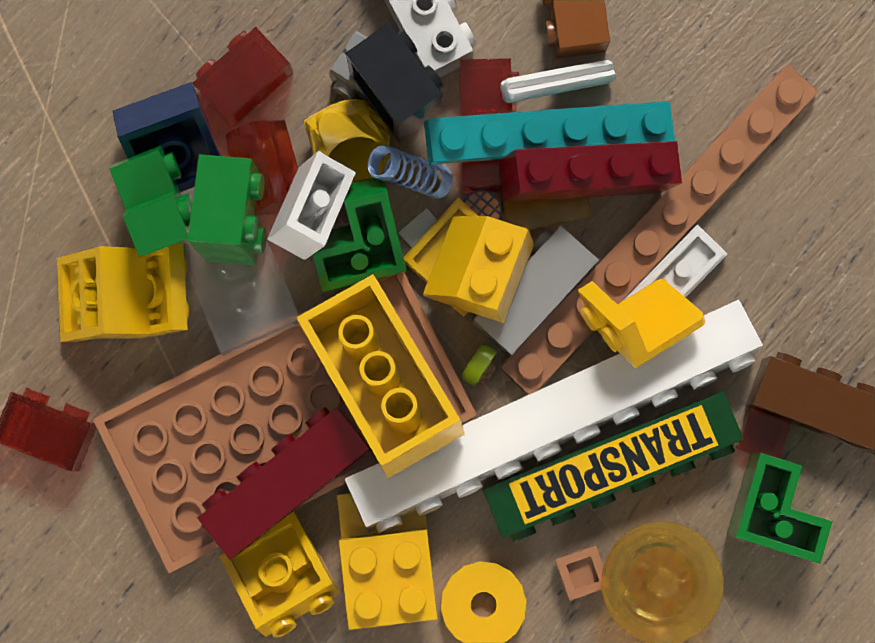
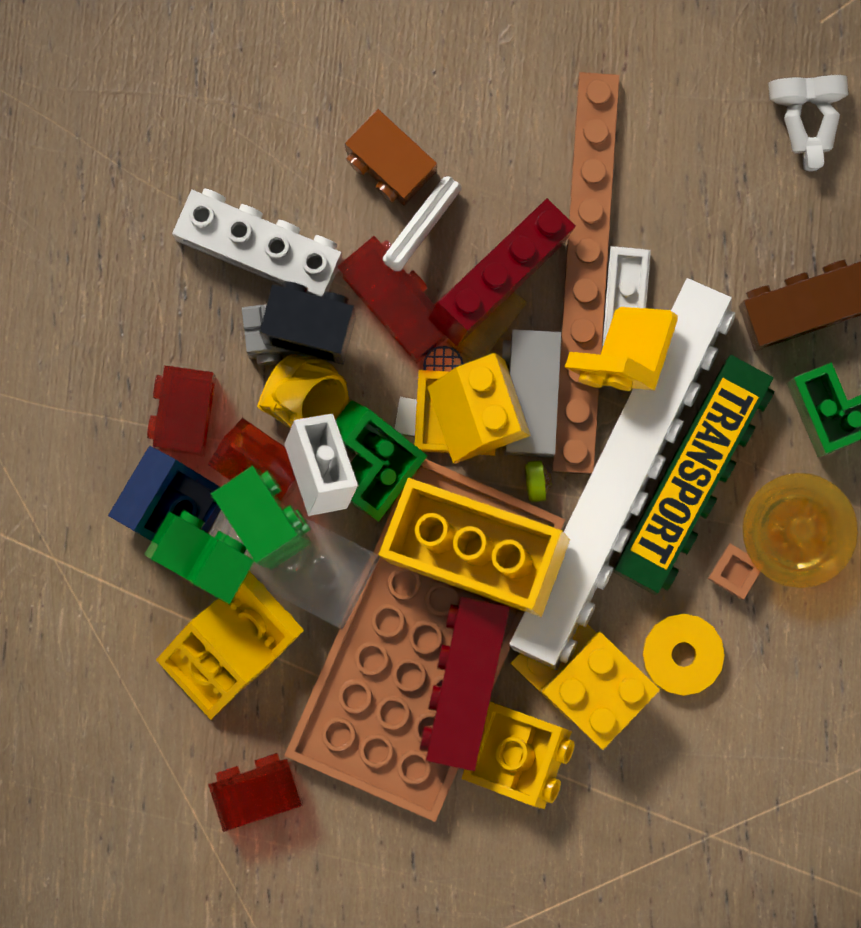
camera: 40 degrees left, 0 degrees up
(380, 151) = (337, 389): light blue piece -> none
(498, 134) = (475, 238): teal plate -> none
(763, 433) = (784, 361): clear red tile -> none

